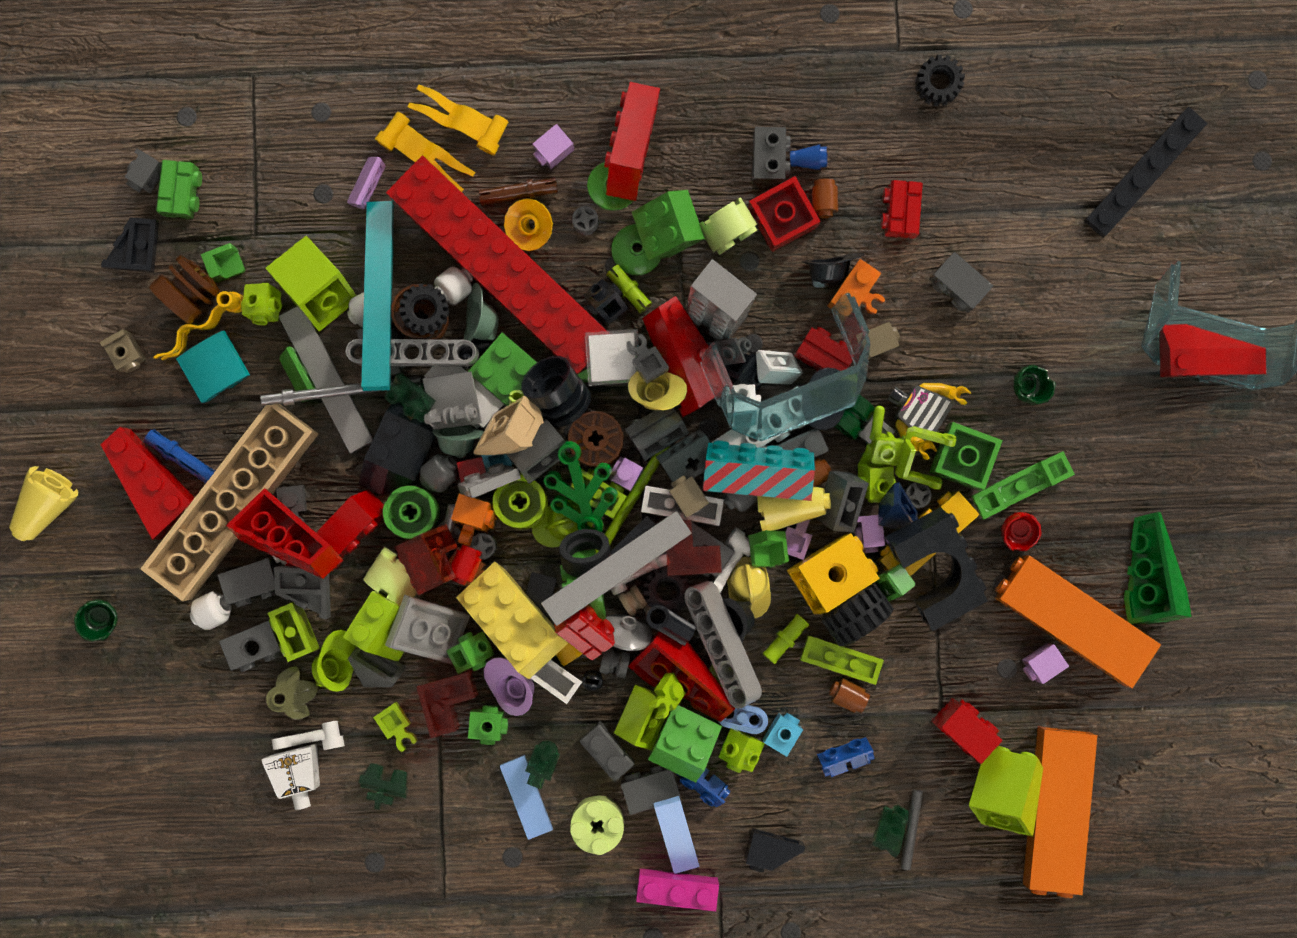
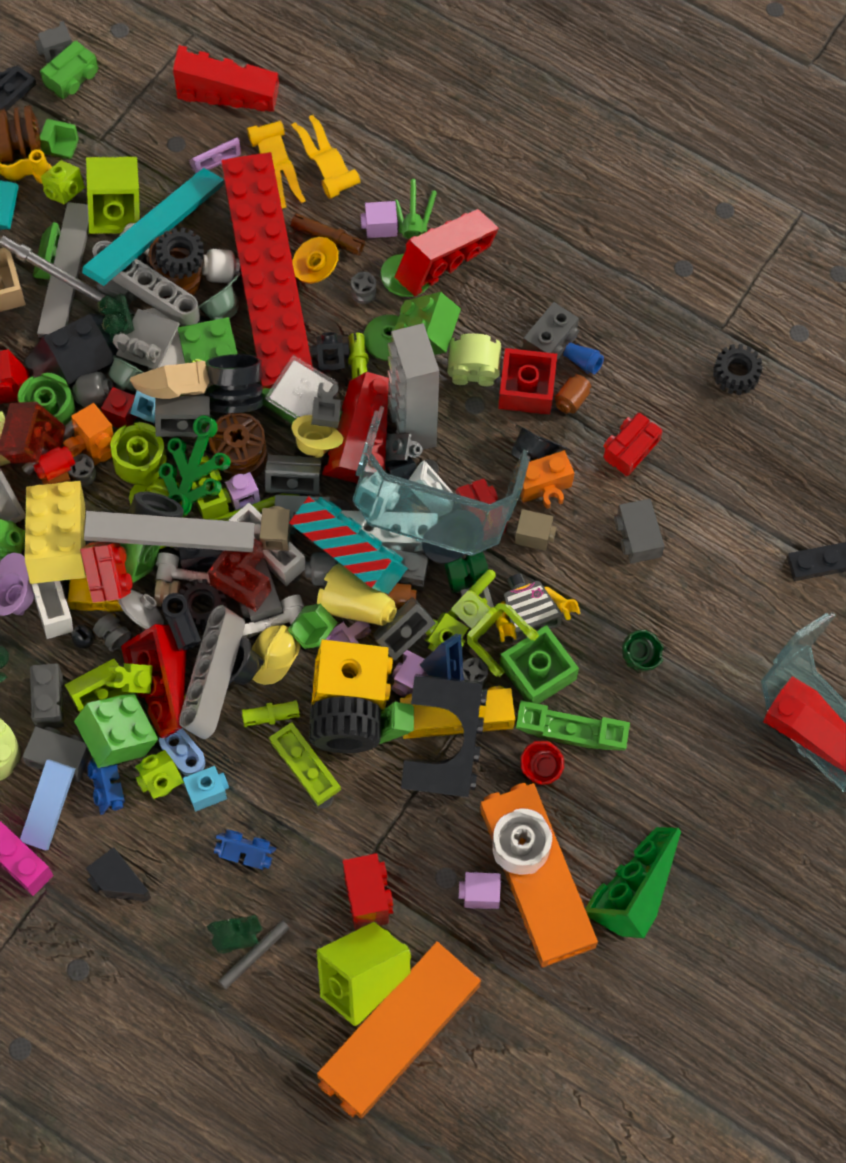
camera: 40 degrees right, 20 degrees down
(323, 109) = (223, 82): none -> red wedge
(496, 477) = (132, 411): light grey plate -> none
(583, 133) = (413, 224): none -> bright green plant
(849, 695) = (287, 797): dark orange brick -> none
(1072, 624) = (509, 831): none -> white brick

